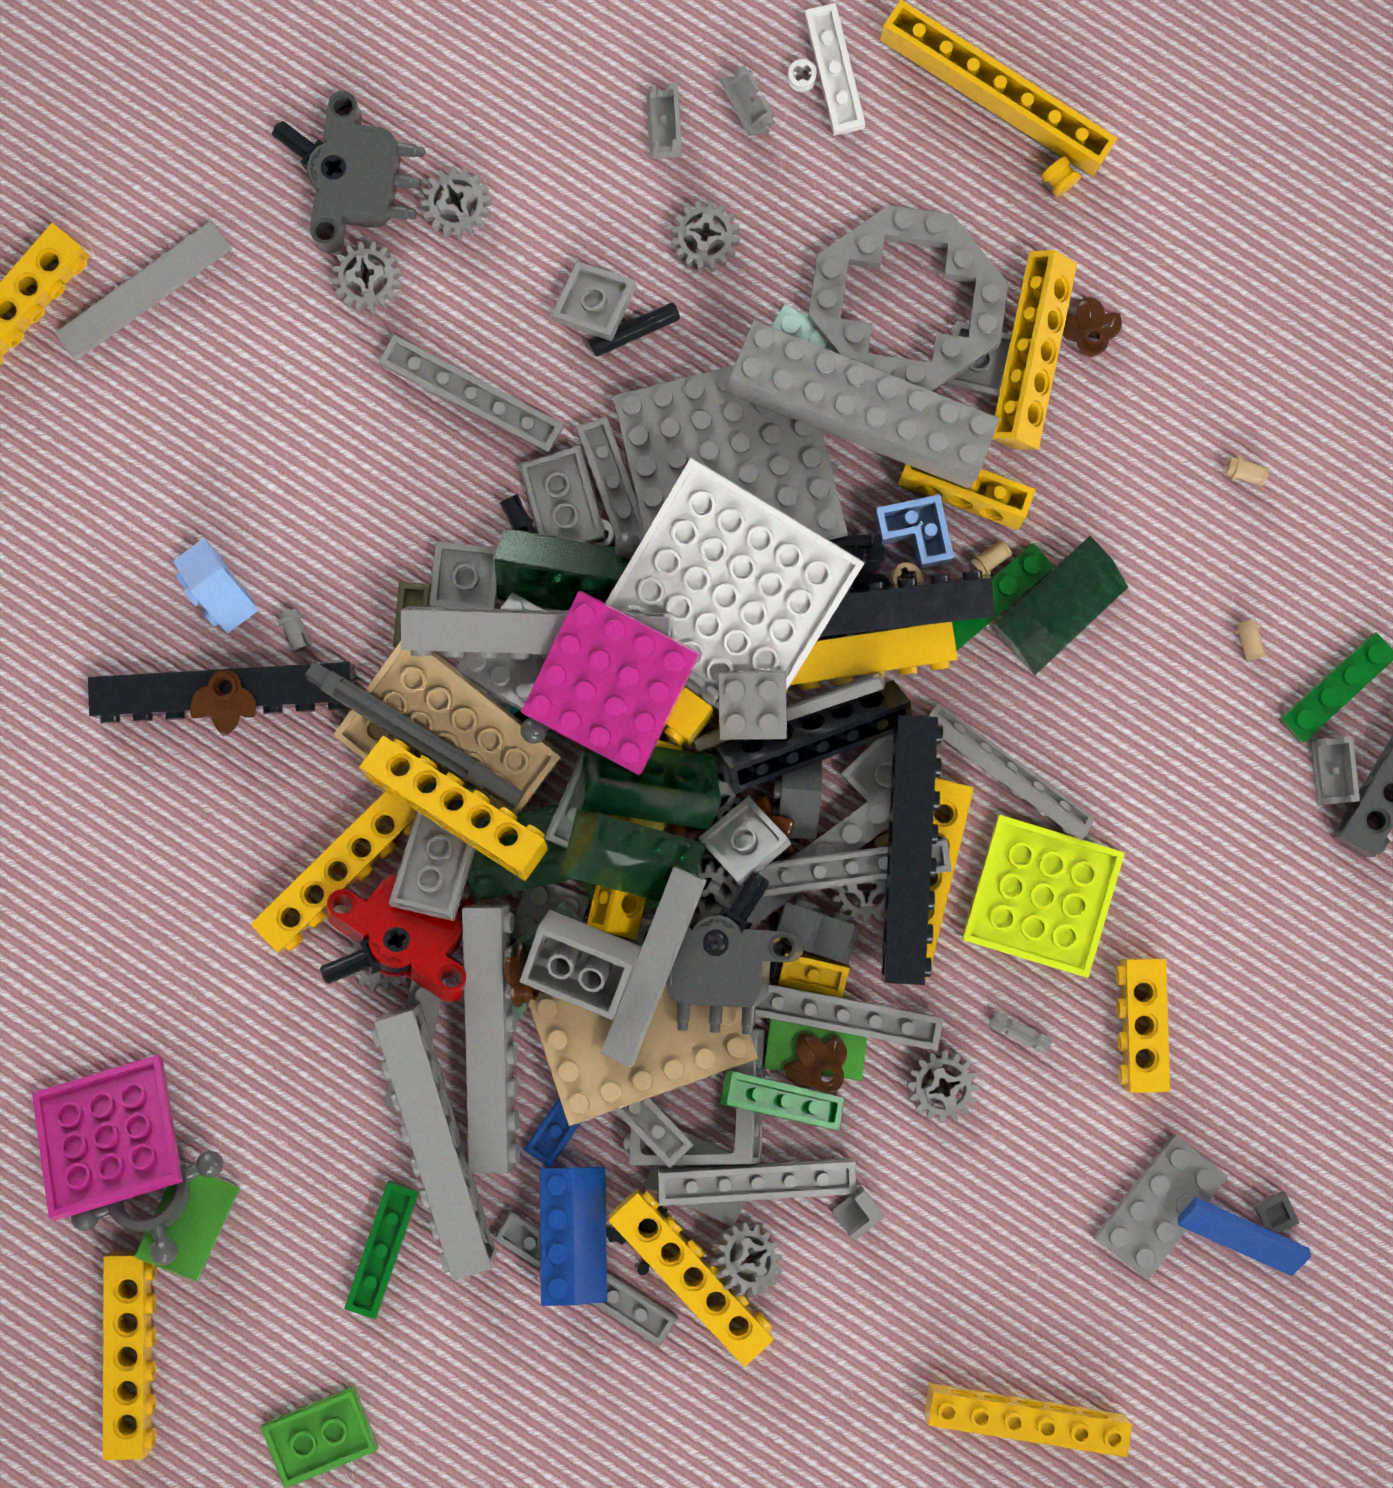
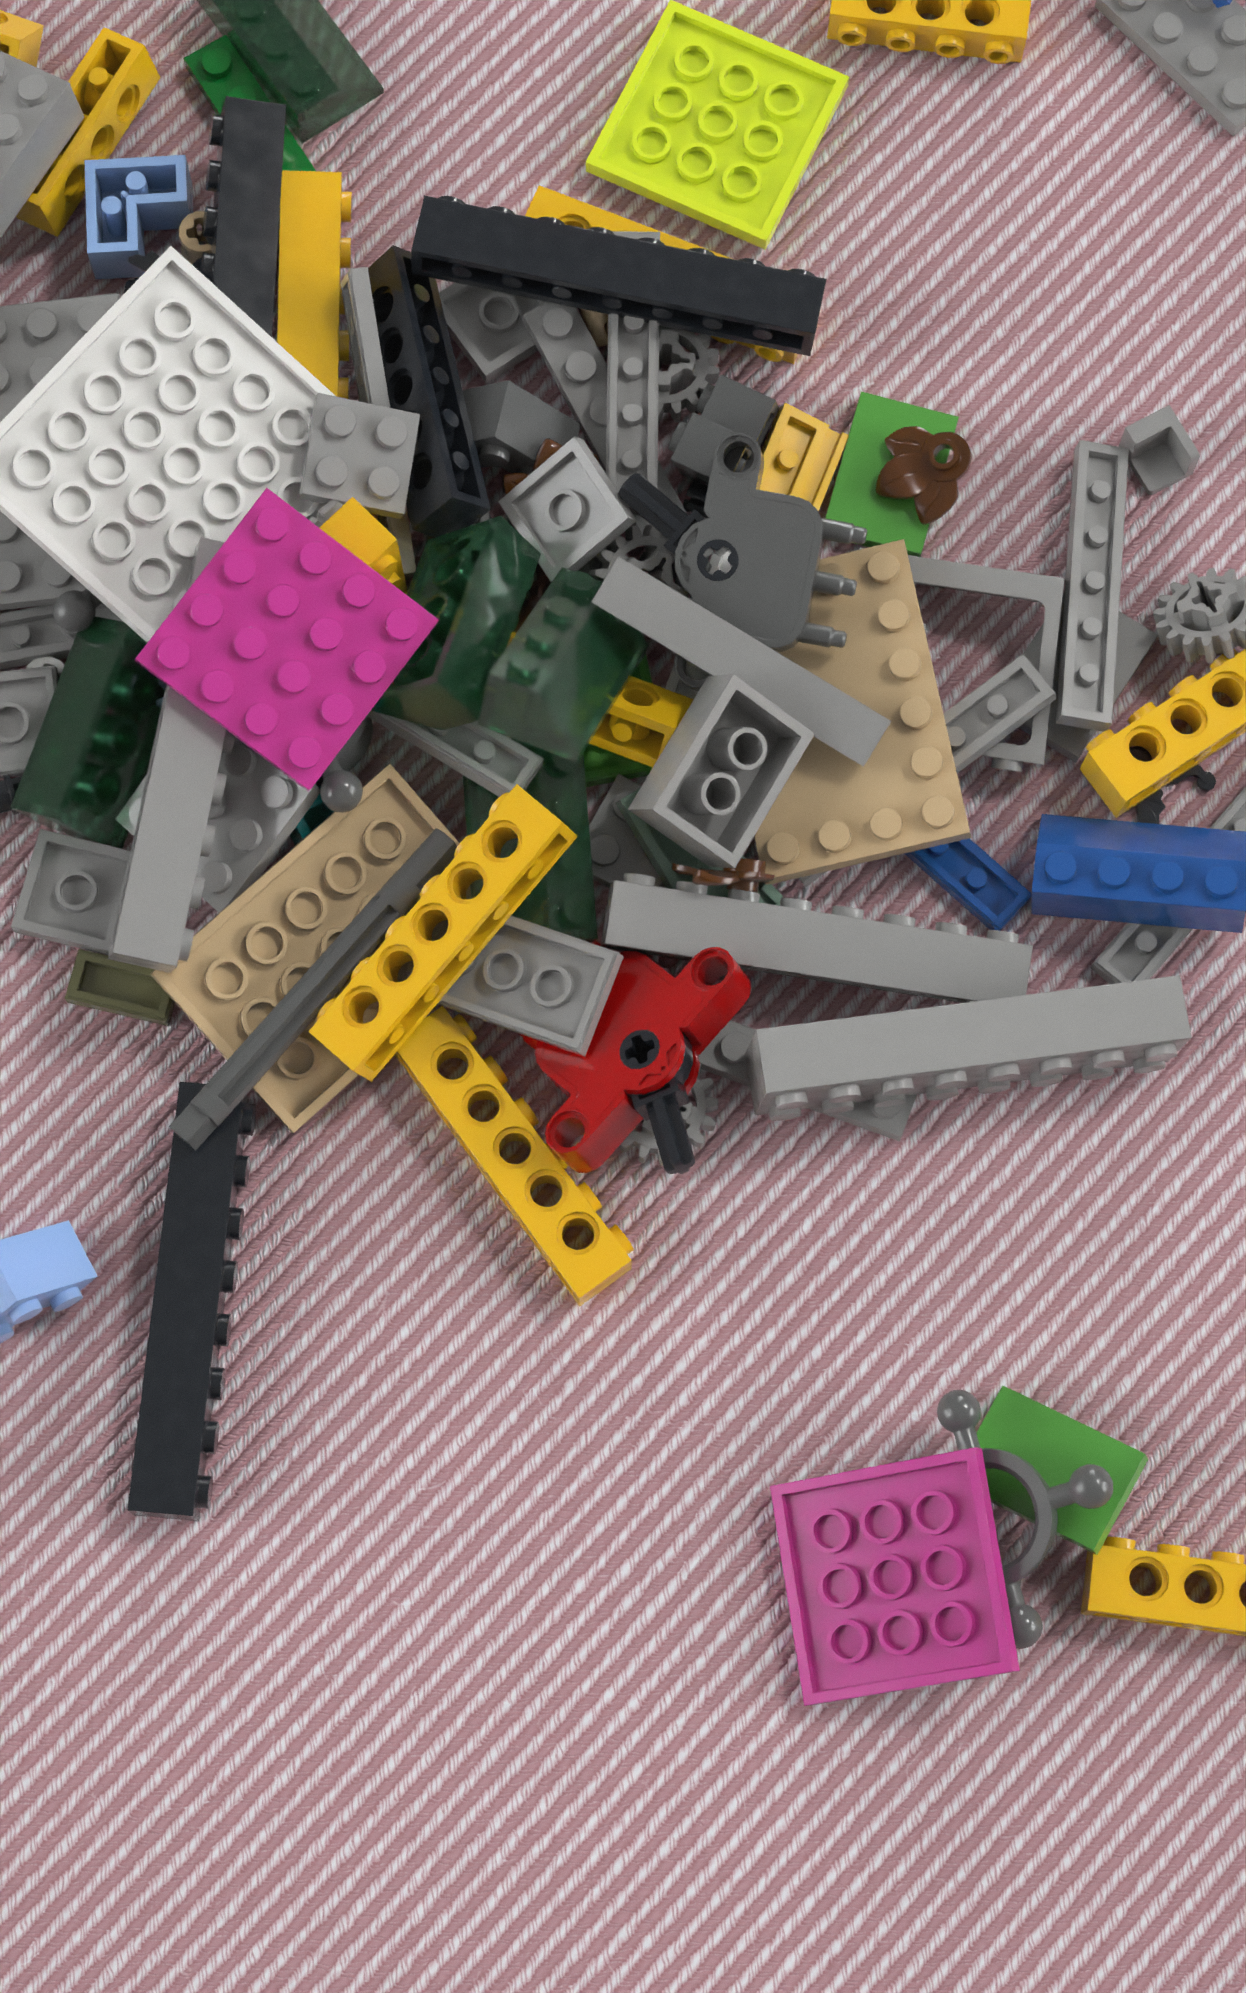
camera: 80 degrees left, 10 degrees down
(222, 706) = (217, 1289): reddish brown plate -> none
(294, 629) = (111, 1173): light grey pin -> none
(382, 1249) = (1130, 1170): green plate -> none
(782, 1100) = (973, 523): plate -> none
(851, 1016) = (862, 402): light grey plate -> none
(937, 1072) = (966, 316): light grey gear -> none
(991, 557) = (193, 120): tan pin -> none
(1013, 774) = (541, 126): light grey plate -> none
(1020, 1032) = (917, 187): light grey axle -> none

